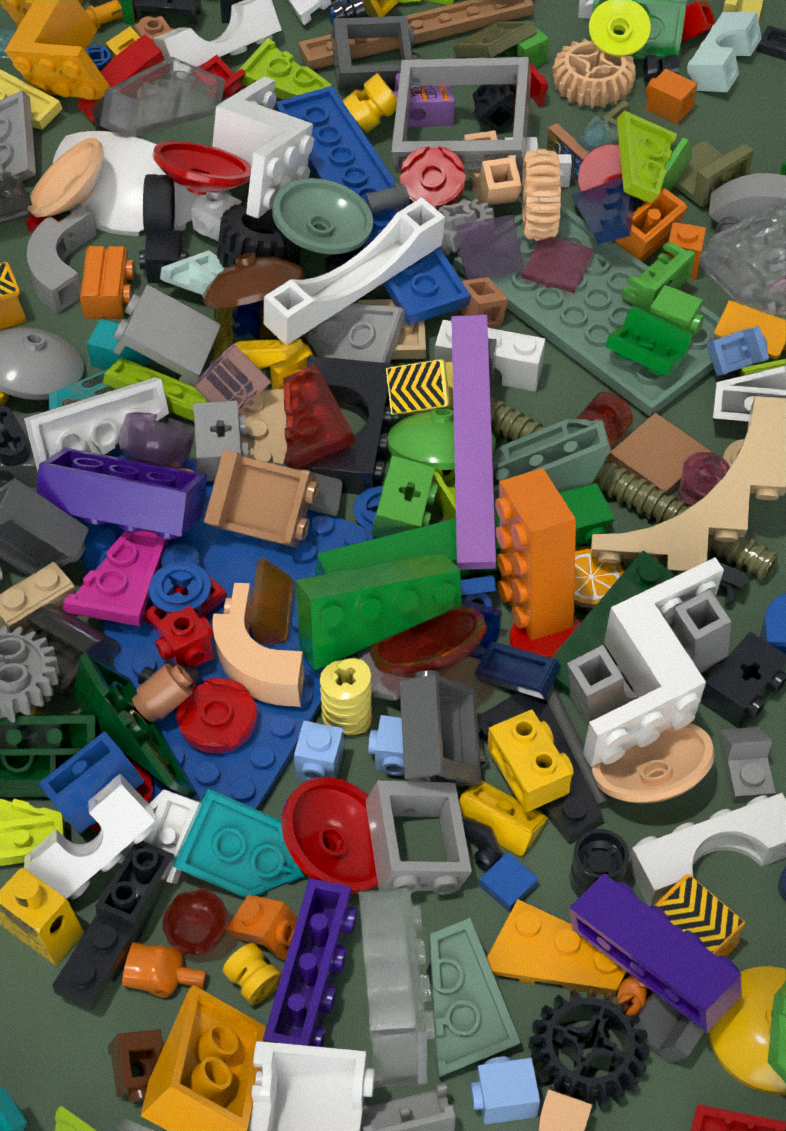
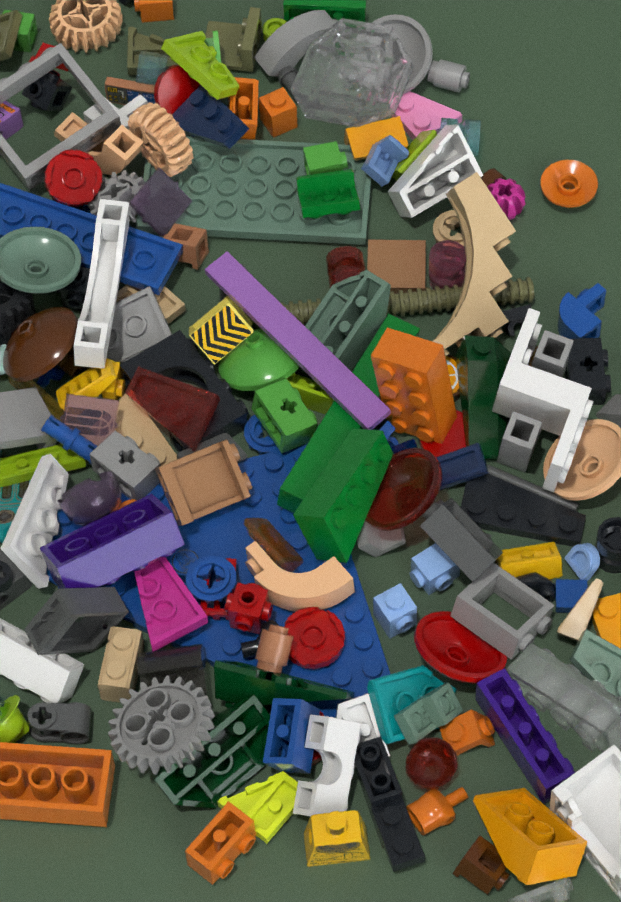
camera: 40 degrees left, 5 degrees up
(197, 380) = (68, 437): none -> blue pin
(242, 871) = (428, 713): none -> sand green slope
(252, 973) = (498, 767): yellow wheel -> none
(347, 695) = (380, 562): light yellow piece -> none
(388, 198) = (63, 212): dark grey pin -> none
(495, 902) = (581, 613): none -> tan slope
(517, 355) = (205, 293): white arch -> none
(530, 760) = (522, 515): yellow brick -> none
(553, 857) = (583, 560): none -> light blue tile
(558, 264) = (209, 180): clear pink piece -> none
(662, 272) = (285, 144): bright green hinge -> none

